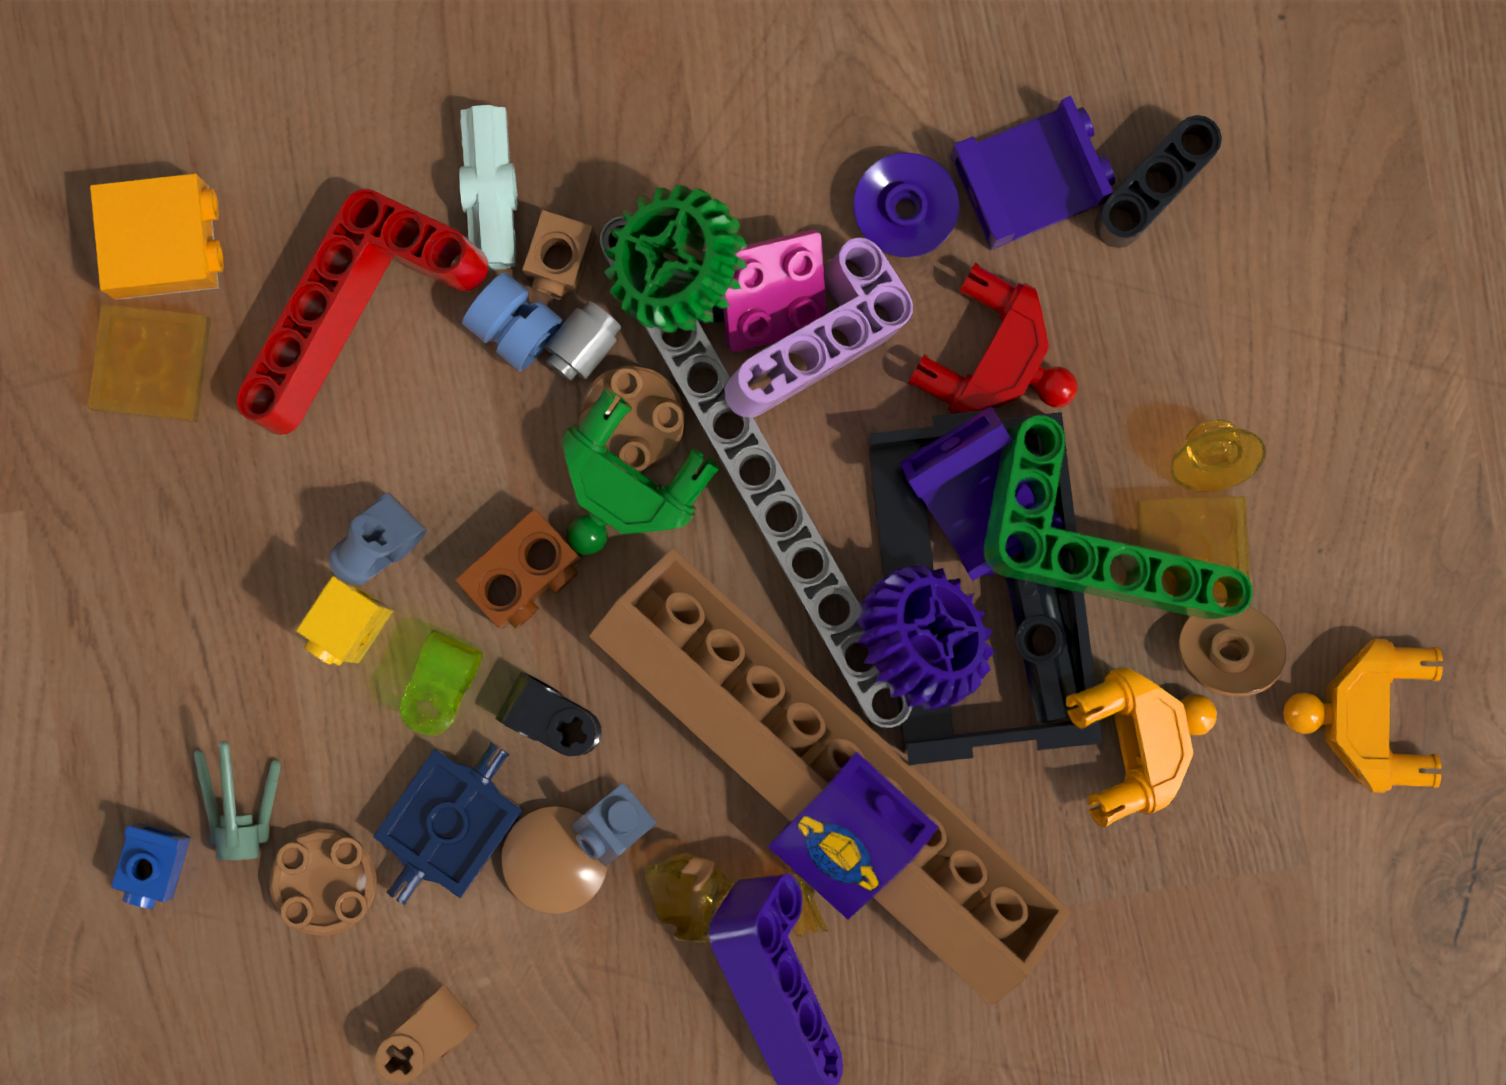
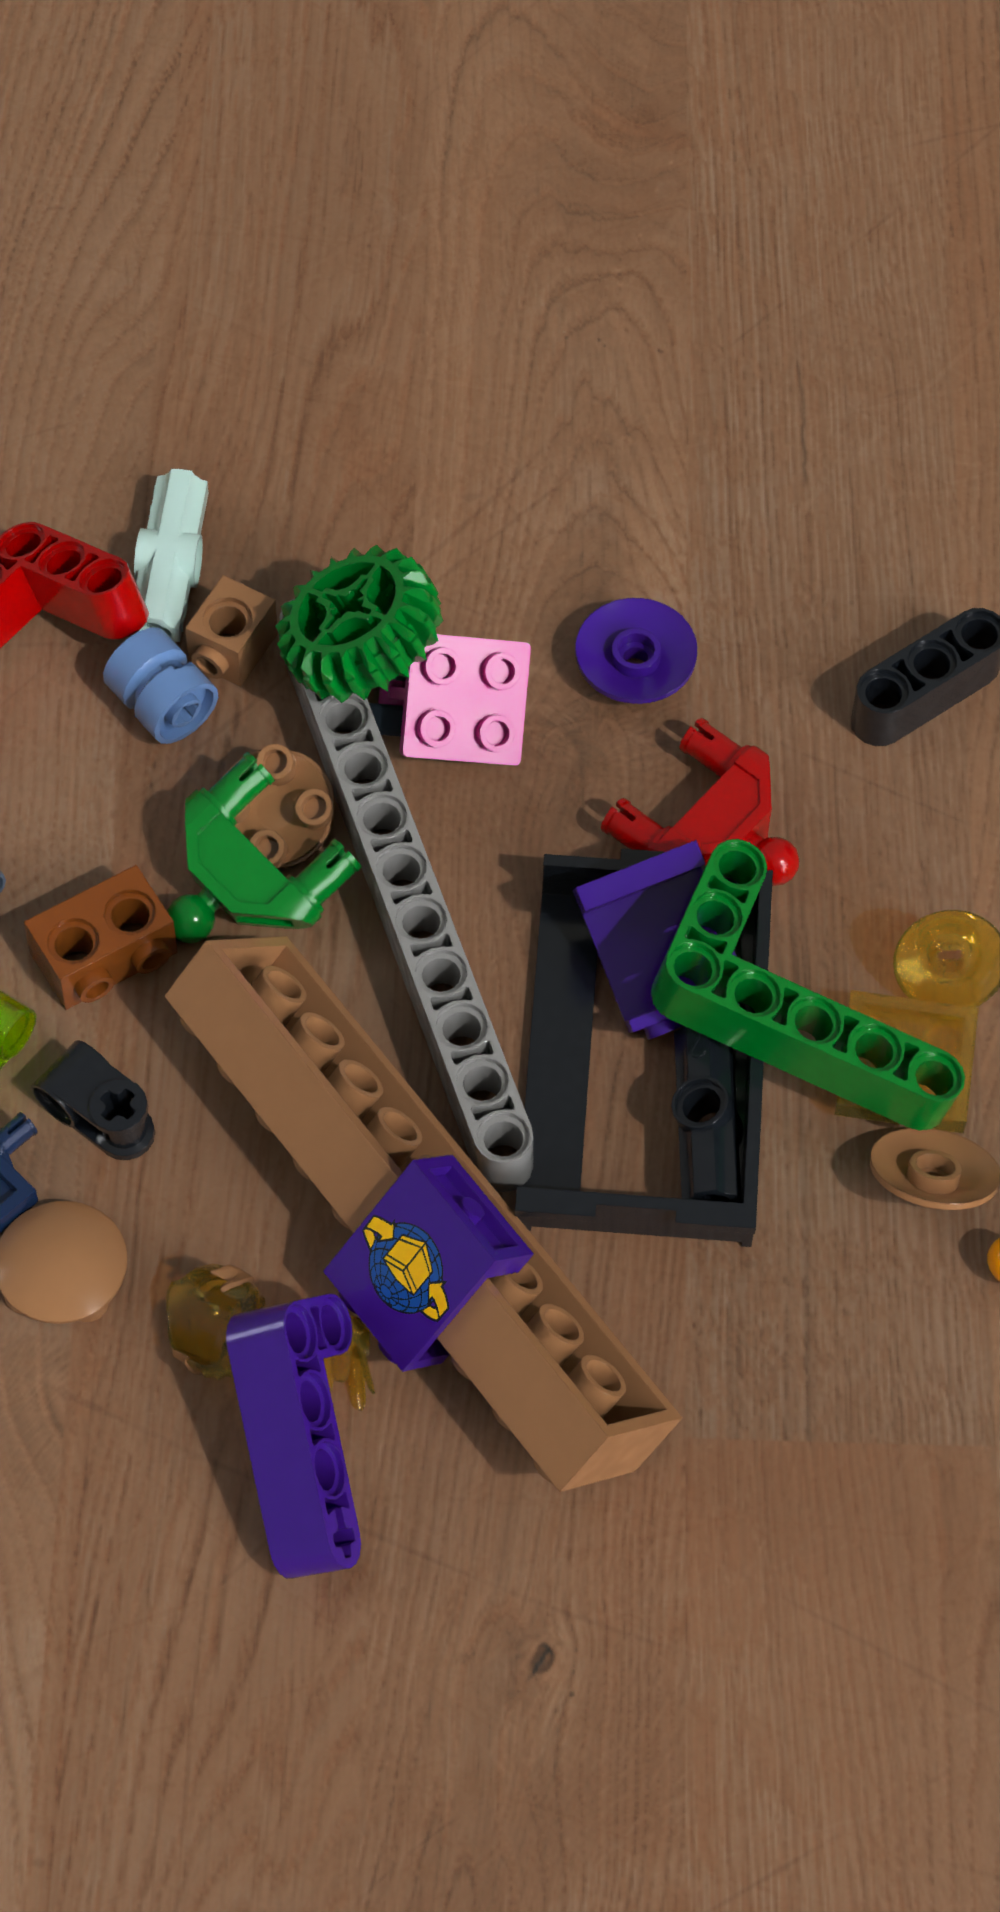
camera: 10 degrees right, 25 degrees down
(582, 341) = (235, 722): light grey brick -> none
(612, 825) = (140, 1229): sand blue bracket -> none
(815, 341) = (550, 752): lavender beam -> none
(925, 637) = (563, 1072): dark purple gear -> none
(1033, 174) = (787, 652): dark purple panel -> none
(1152, 738) = (820, 1238): light orange connector -> none

